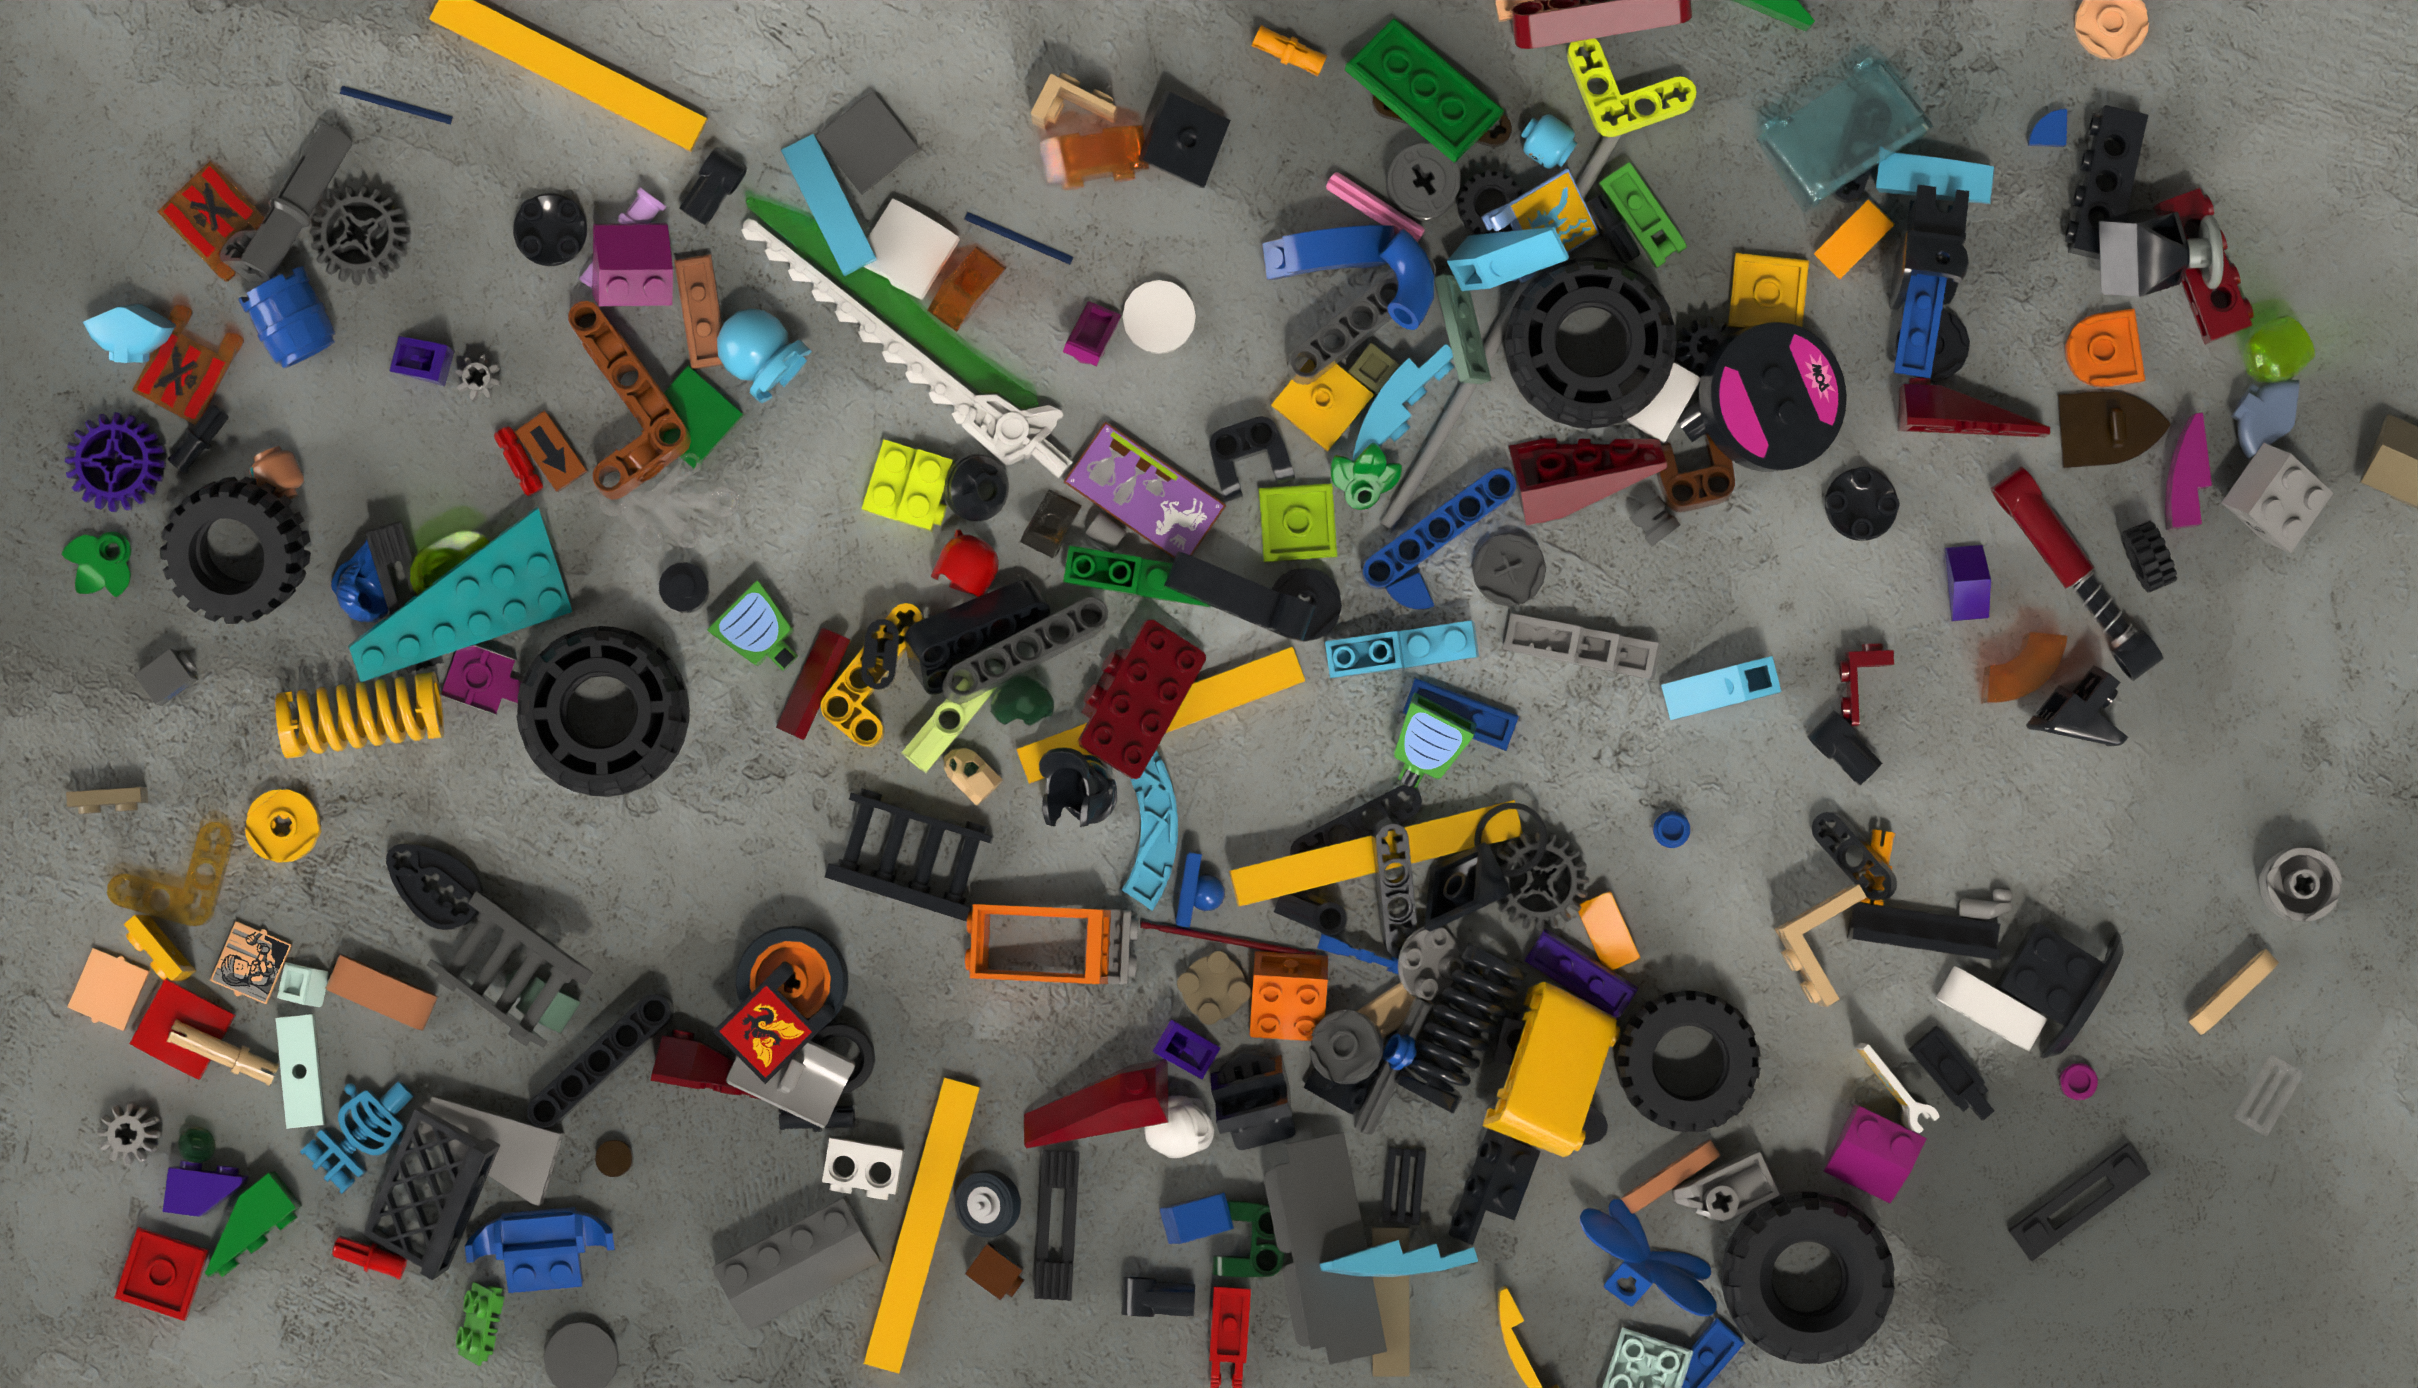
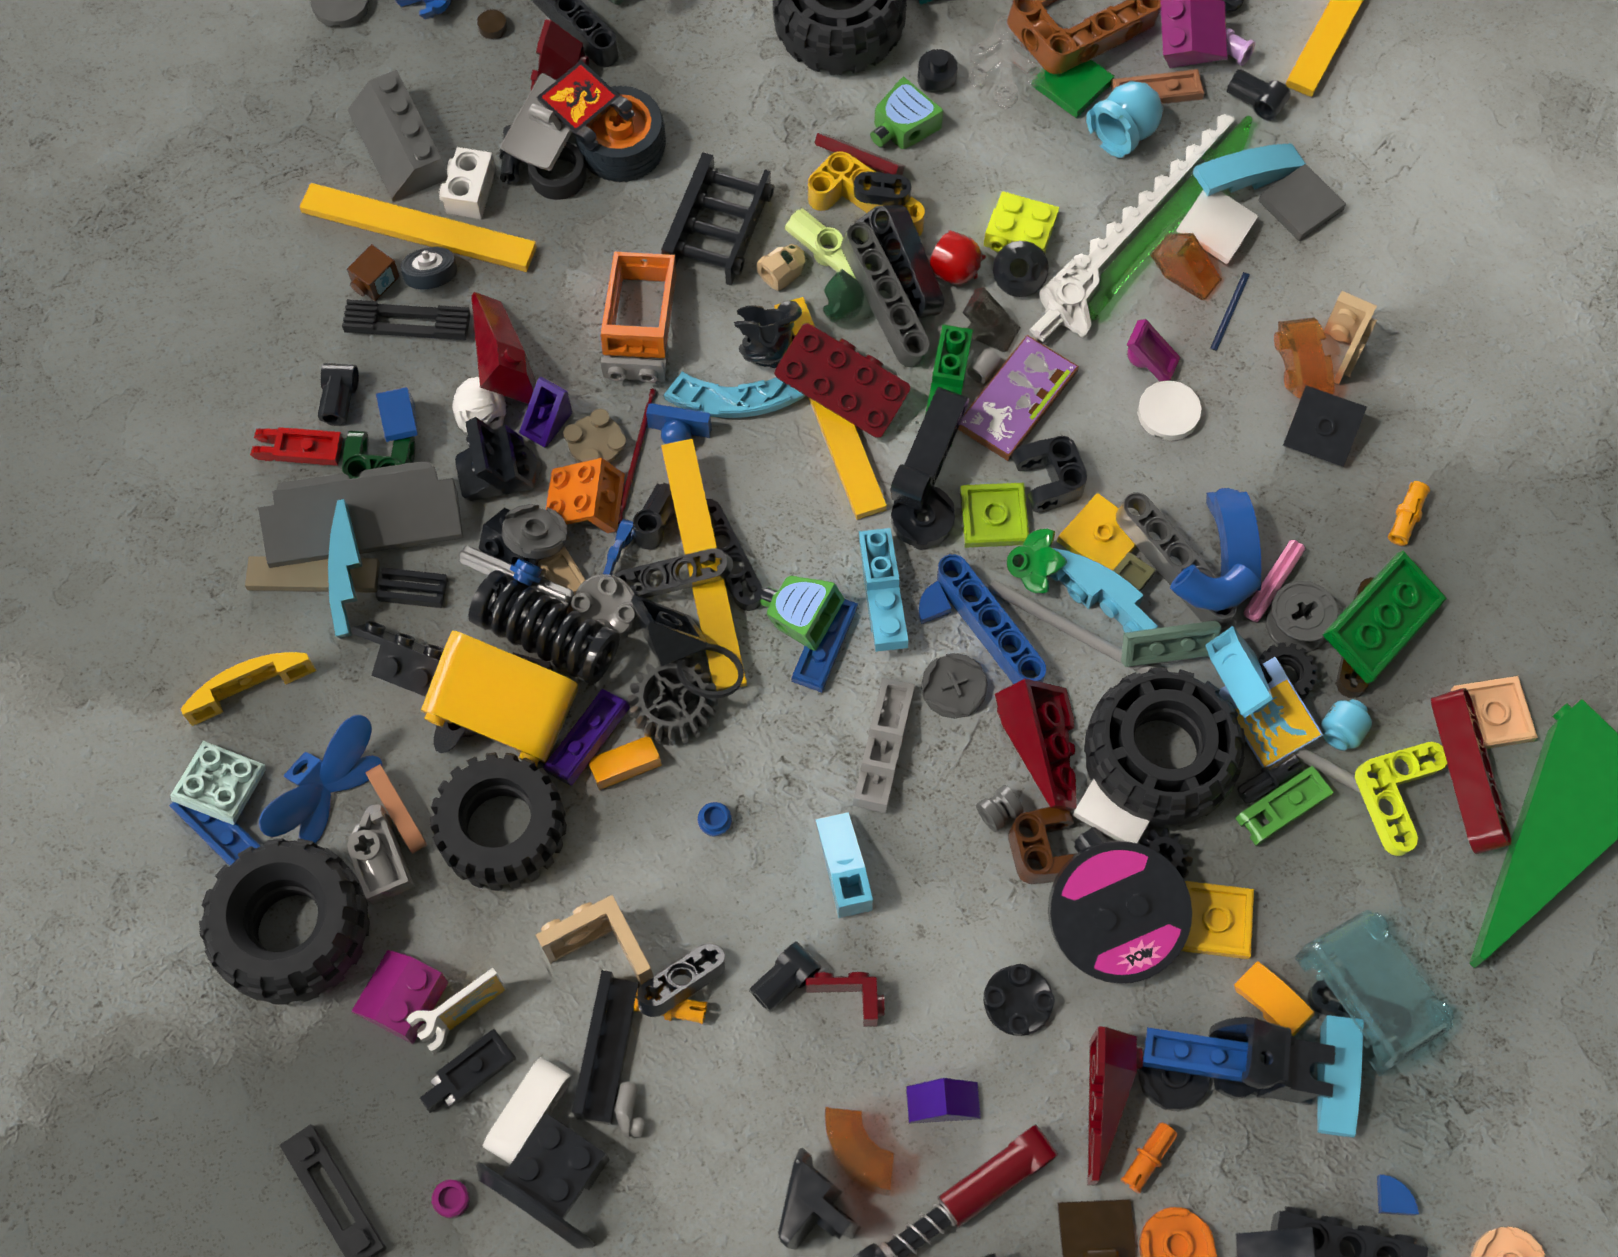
camera: 90 degrees right, 20 degrees down
(2019, 374) = (1149, 1157): none -> orange axle

